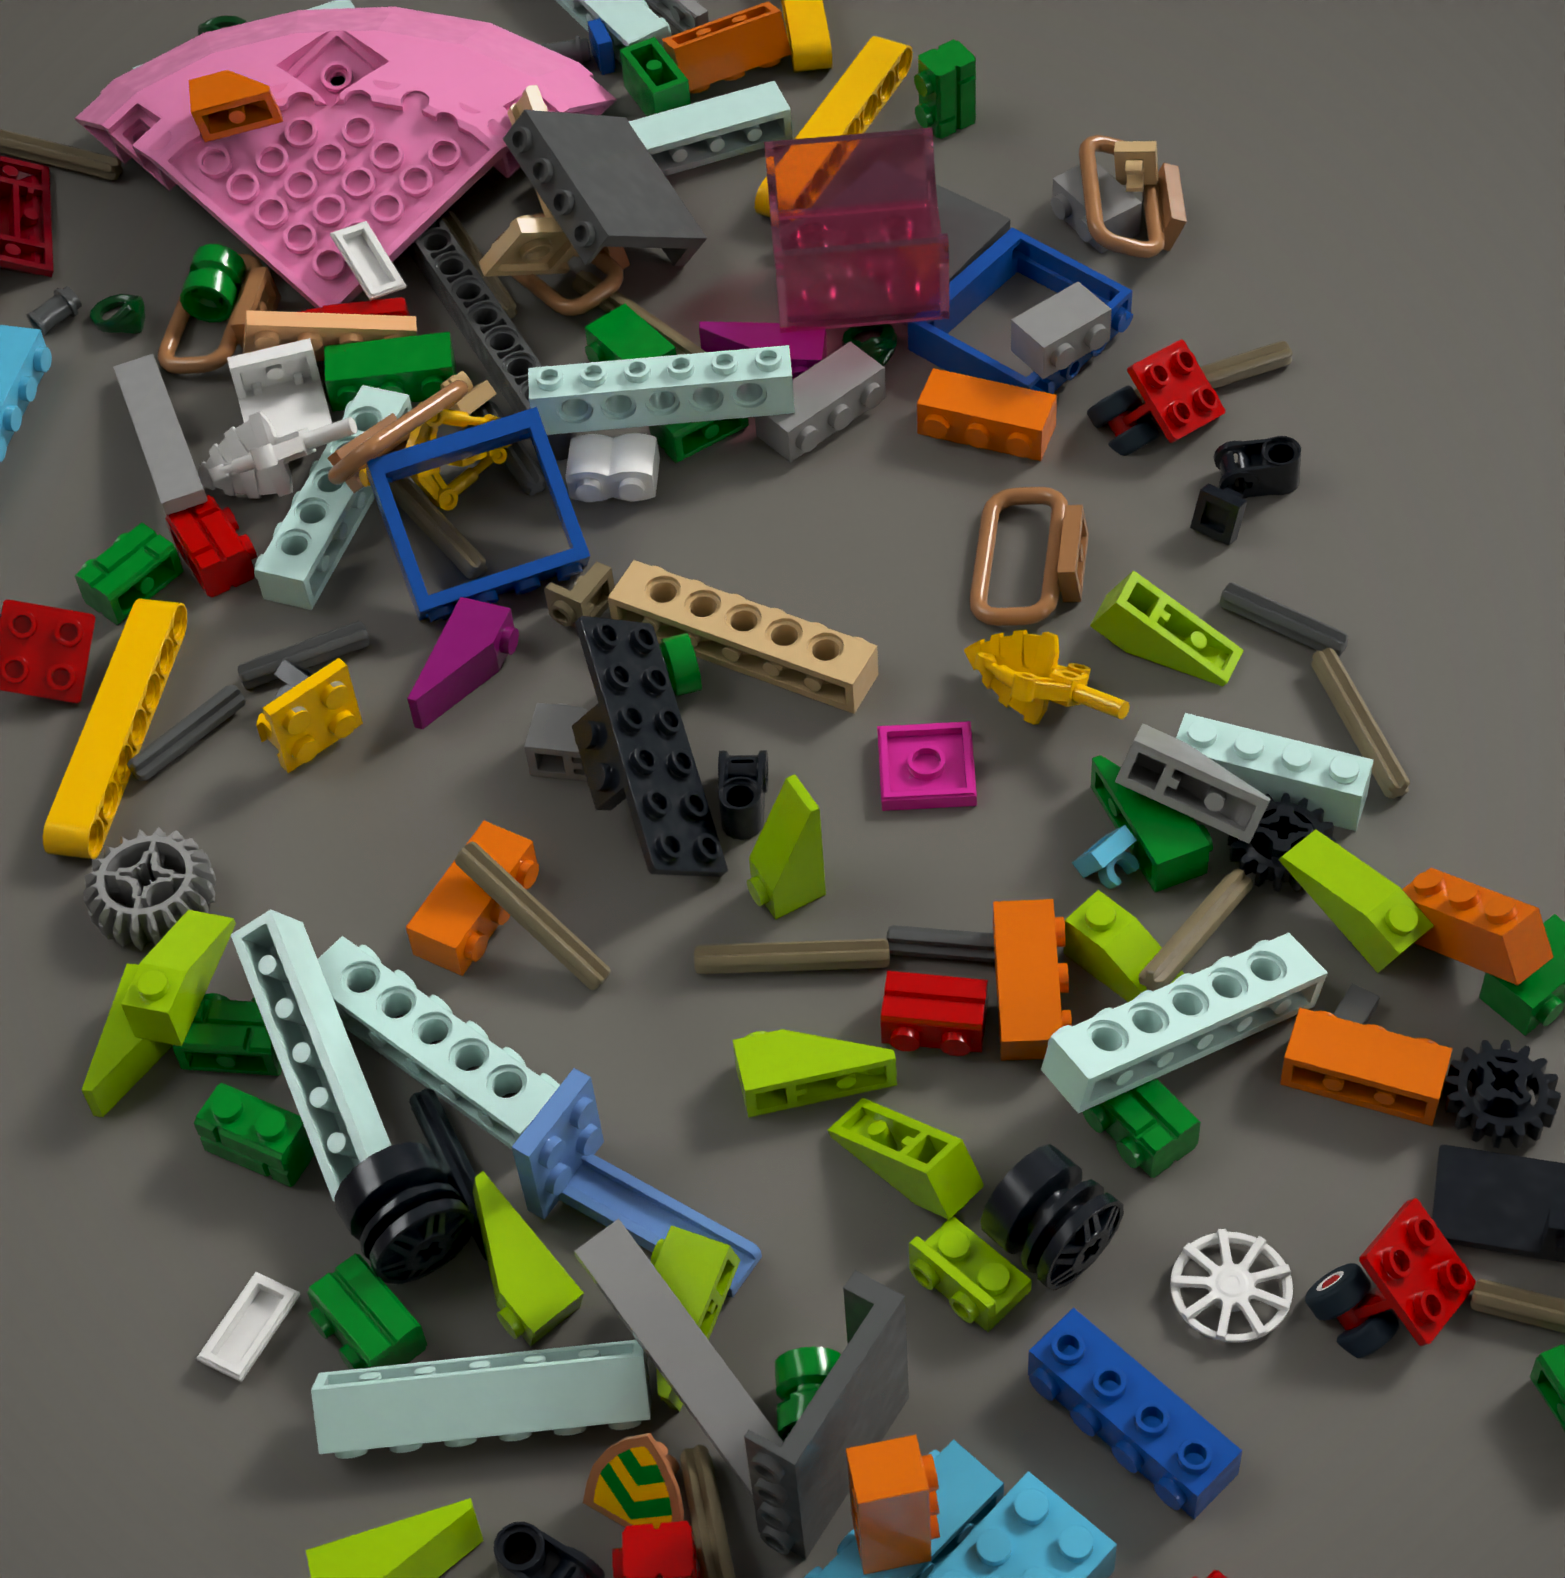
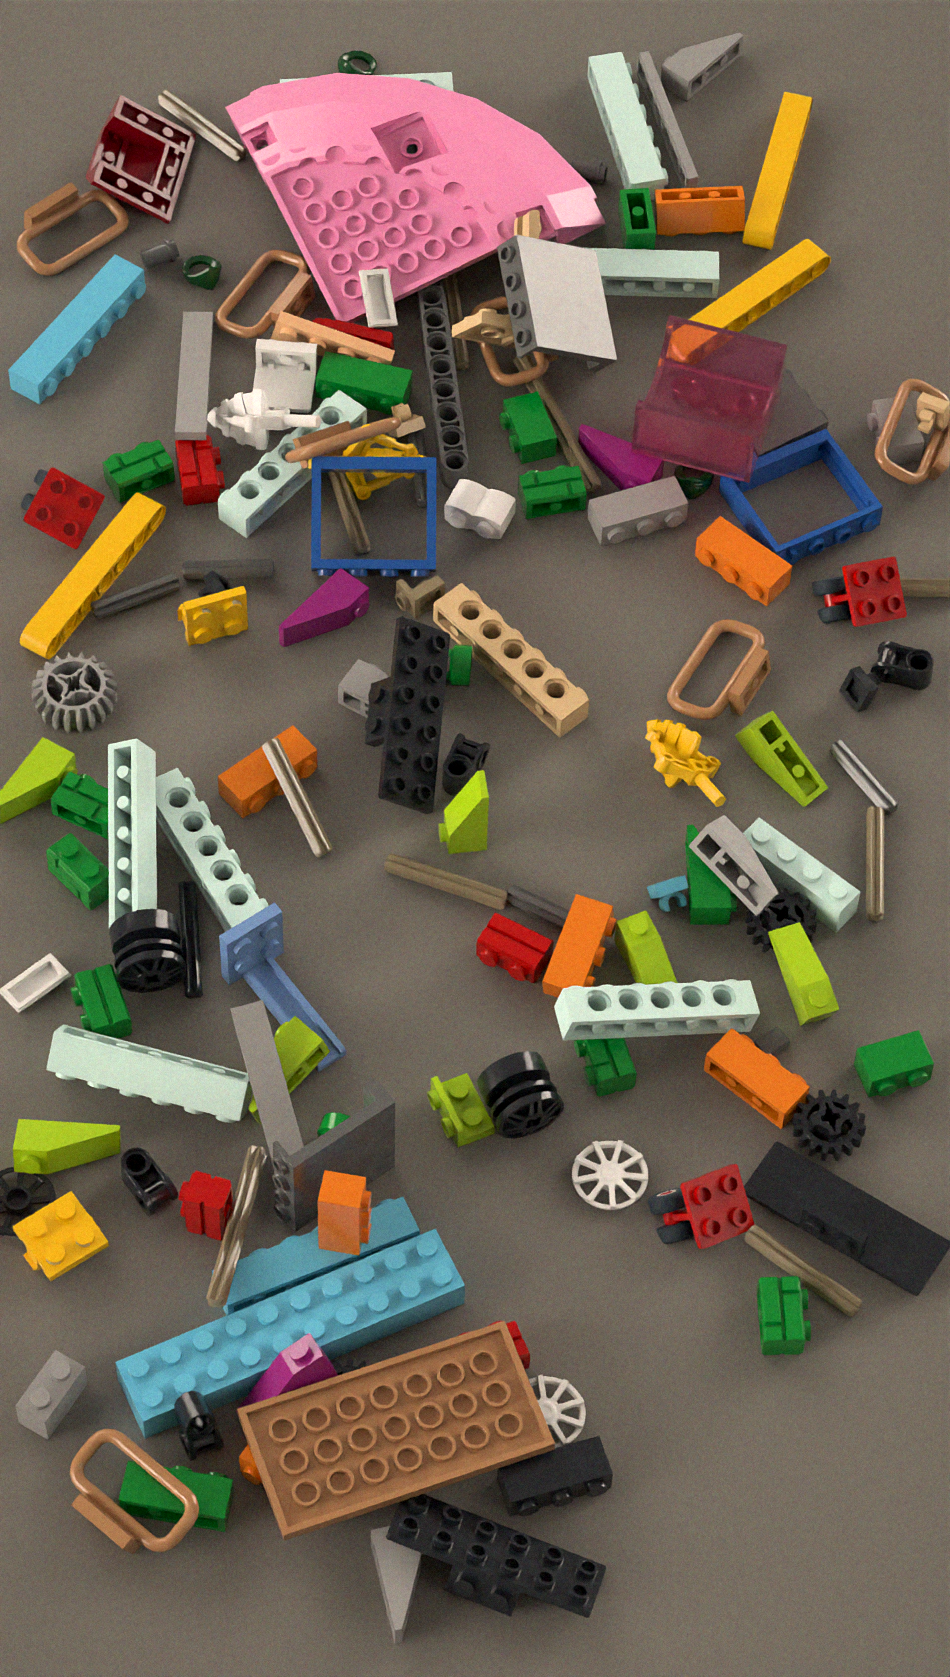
camera: 15 degrees right, 5 degrees up
(176, 977) = (68, 757): lime slope -> none
(212, 283) = (271, 273): green wheel -> none
(231, 104) = (325, 152): orange slope -> none
(525, 1276) = (202, 1017): lime slope -> none
(601, 46) = (614, 176): blue tile -> none
(635, 1483) = (216, 1151): shield -> none
(663, 390) = (529, 469): light aqua brick -> none
(801, 1069) = (415, 952): lime slope -> none
(911, 1156) = (457, 1028): lime slope -> none
(926, 766) = (587, 790): dark pink tile -> none
(946, 89) = (834, 302): green brick -> none
(1060, 330) = (814, 521): light grey brick -> none
(1133, 1414) = (514, 1222): blue brick -> none
(1196, 930) = (696, 957): dark tan axle -> none
(1480, 926) = (863, 1019): orange brick -> none

